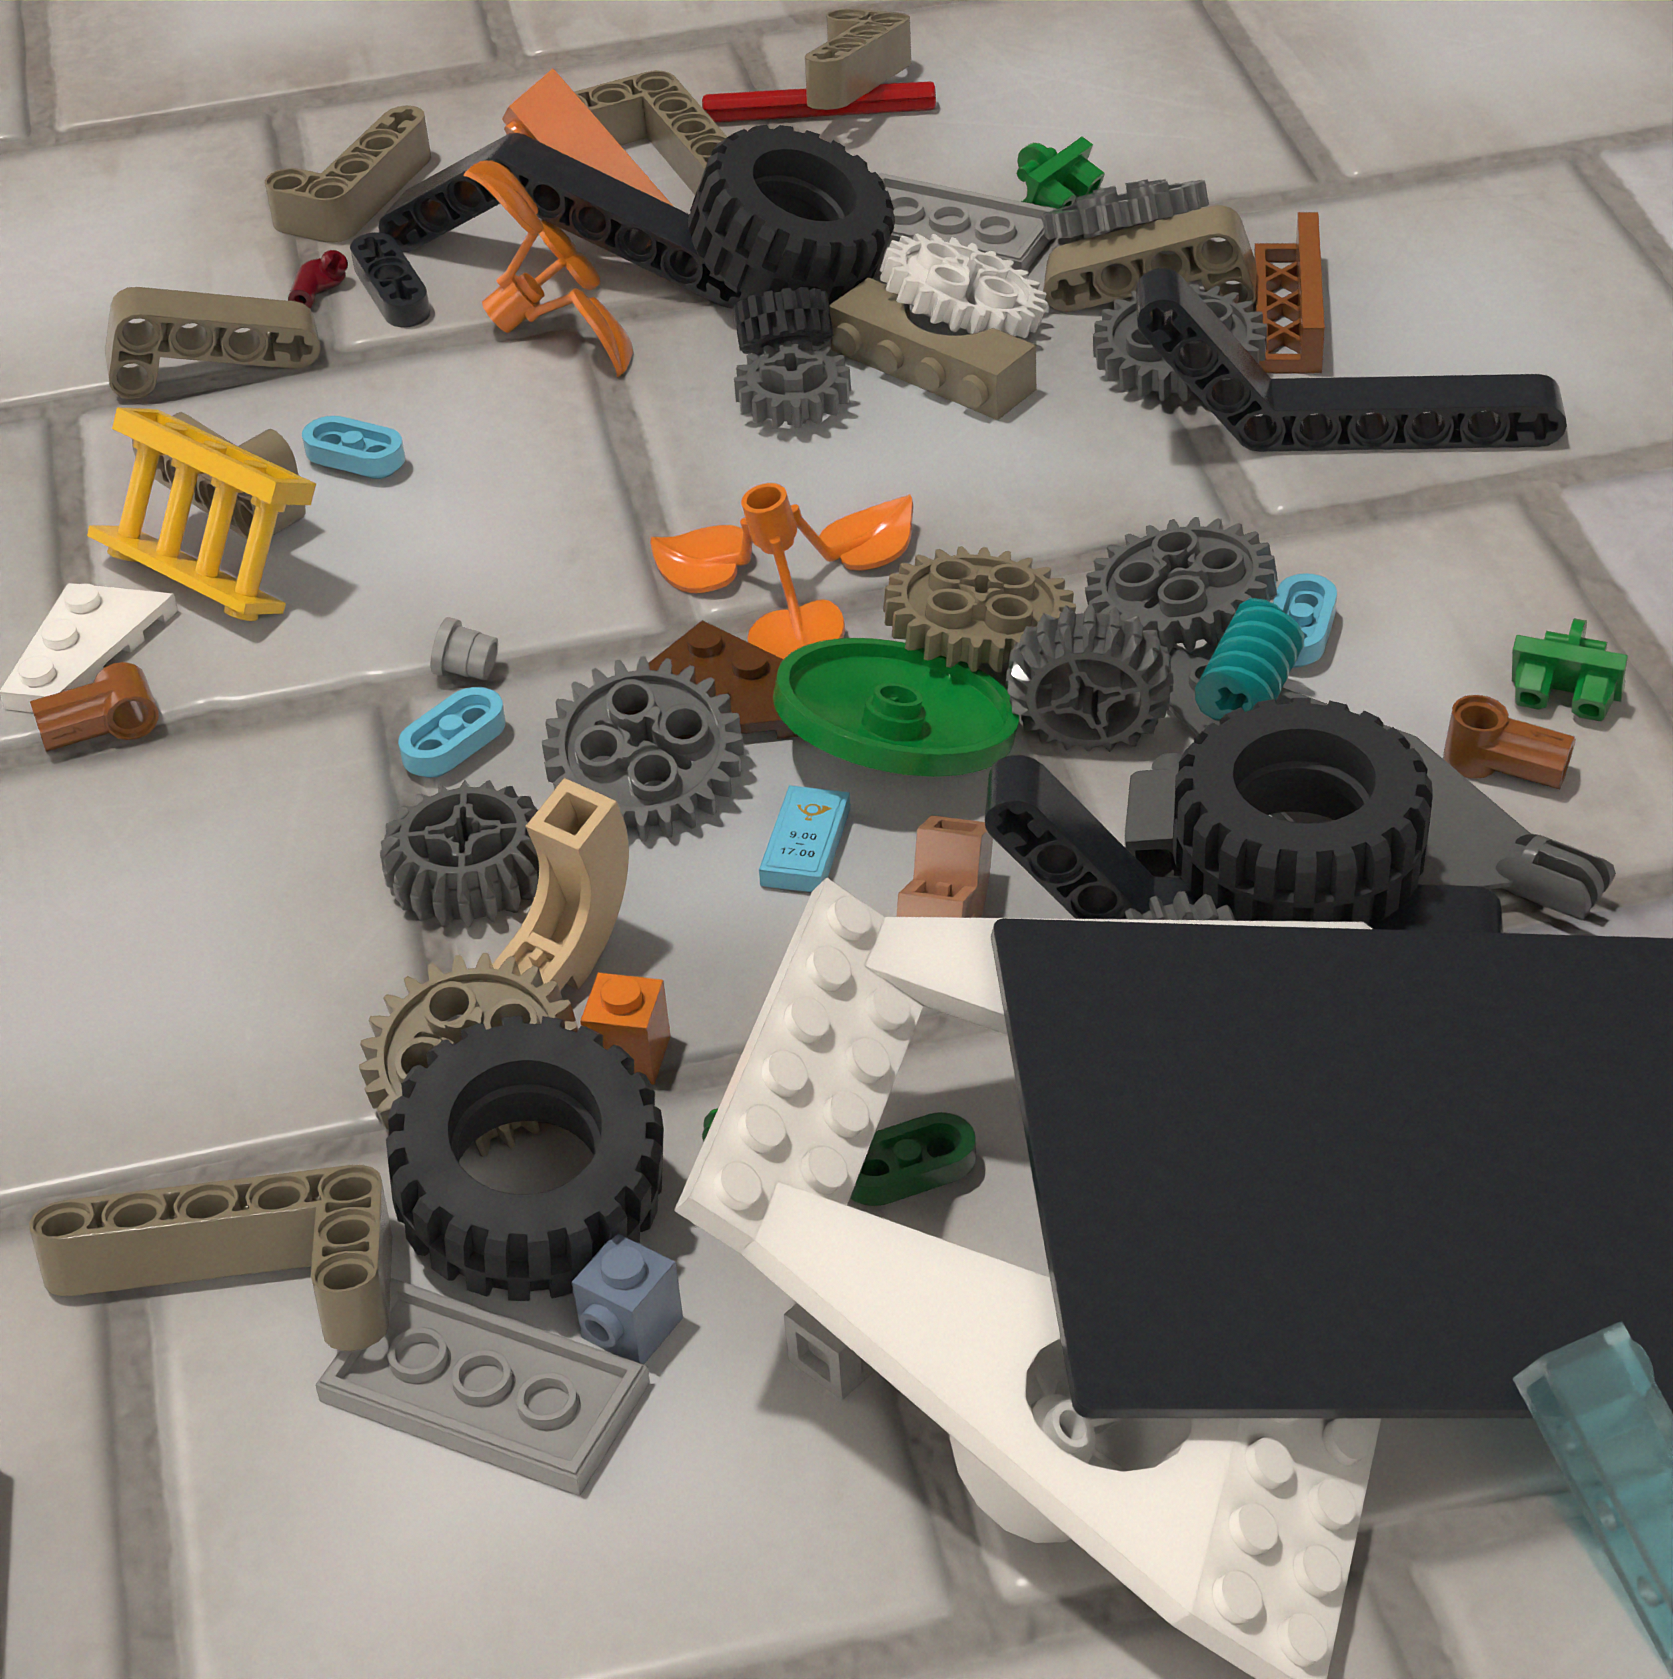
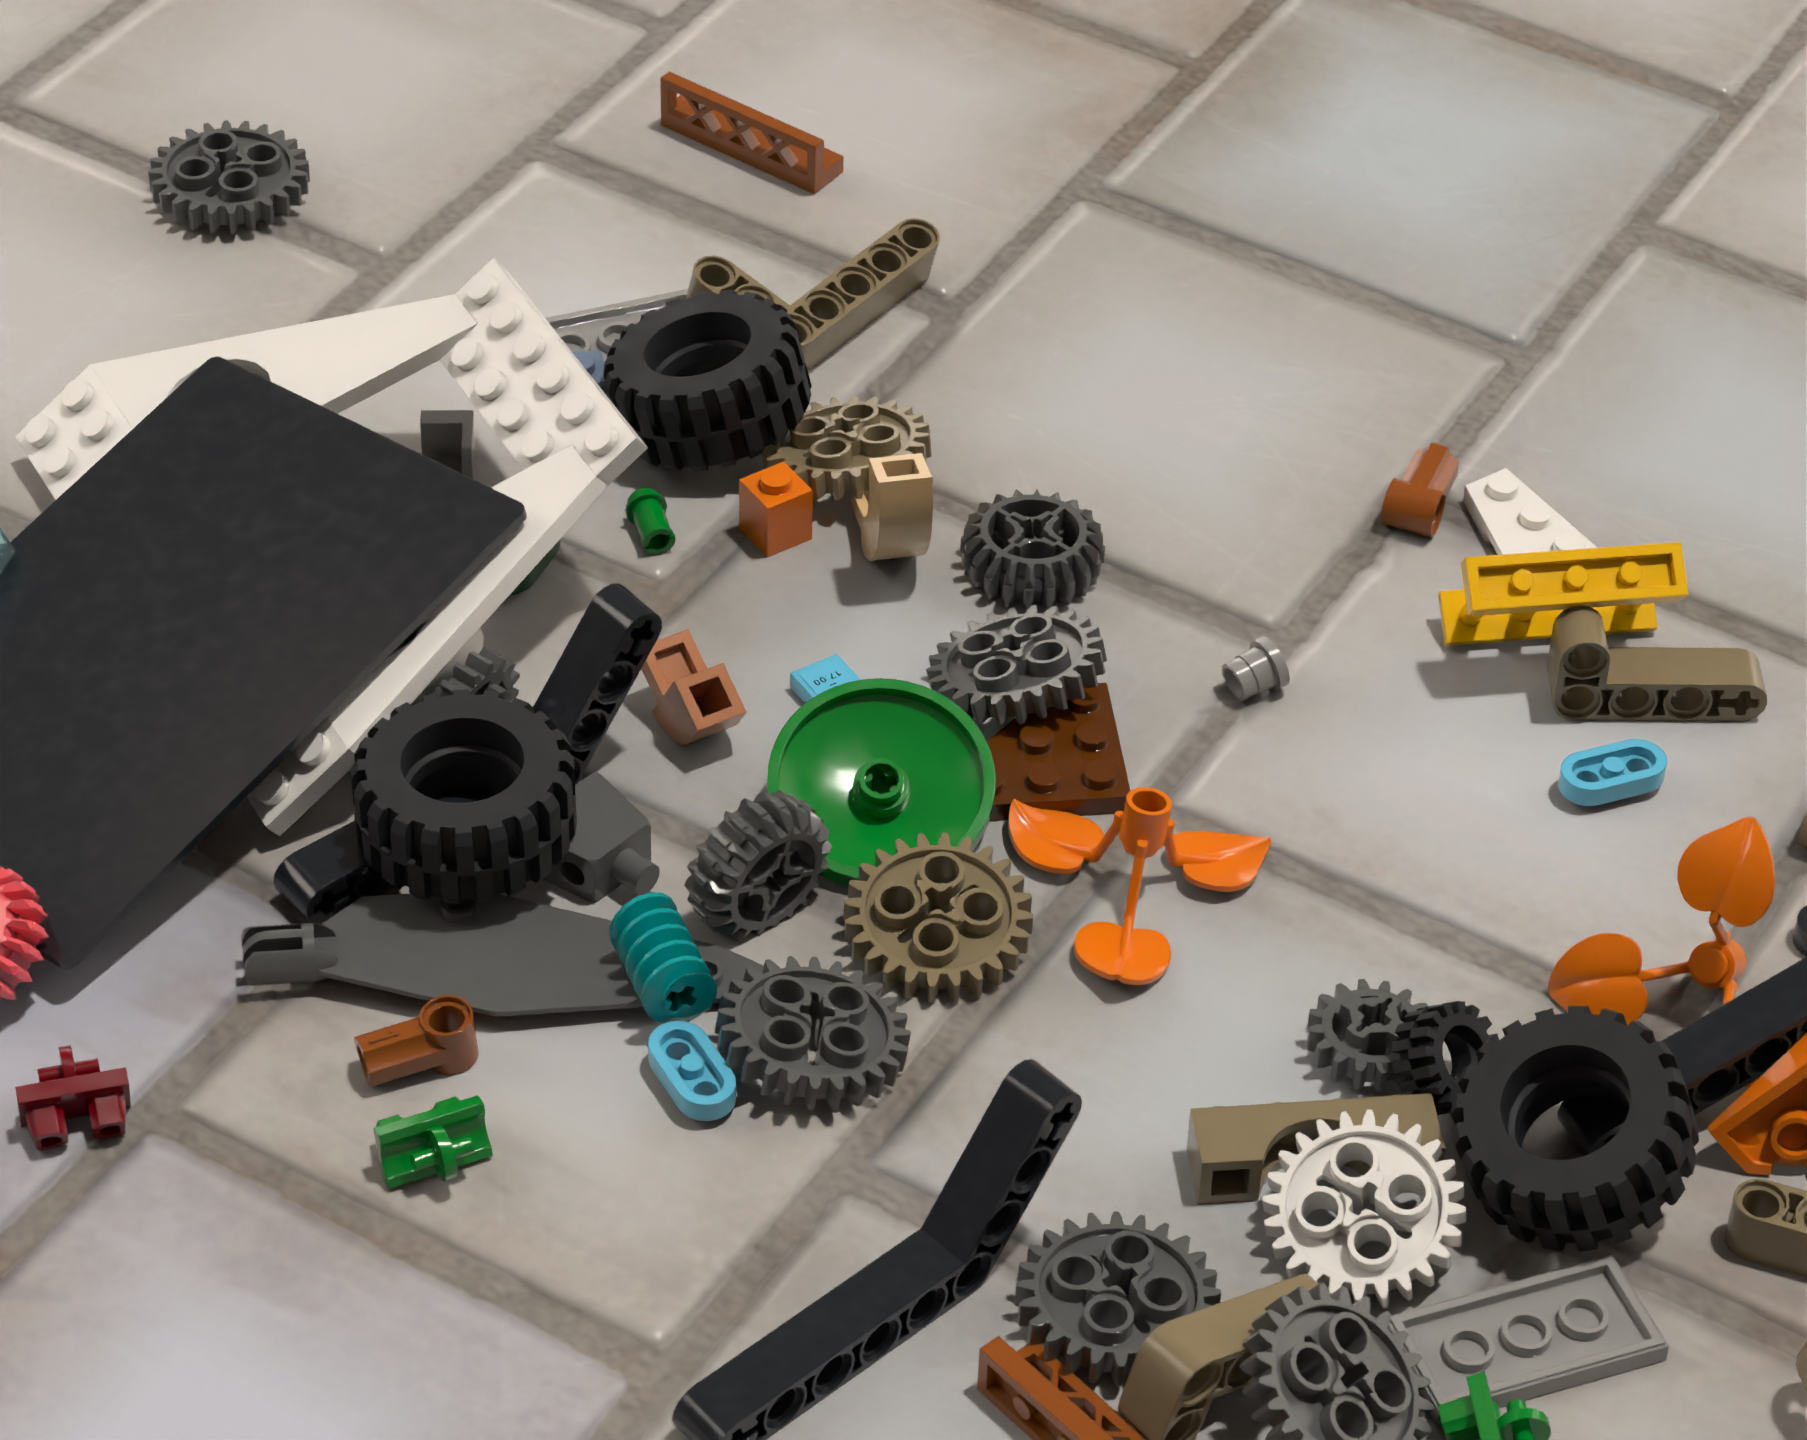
camera: 130 degrees right, 0 degrees up
(451, 731) = (1173, 619): medium azure plate -> none

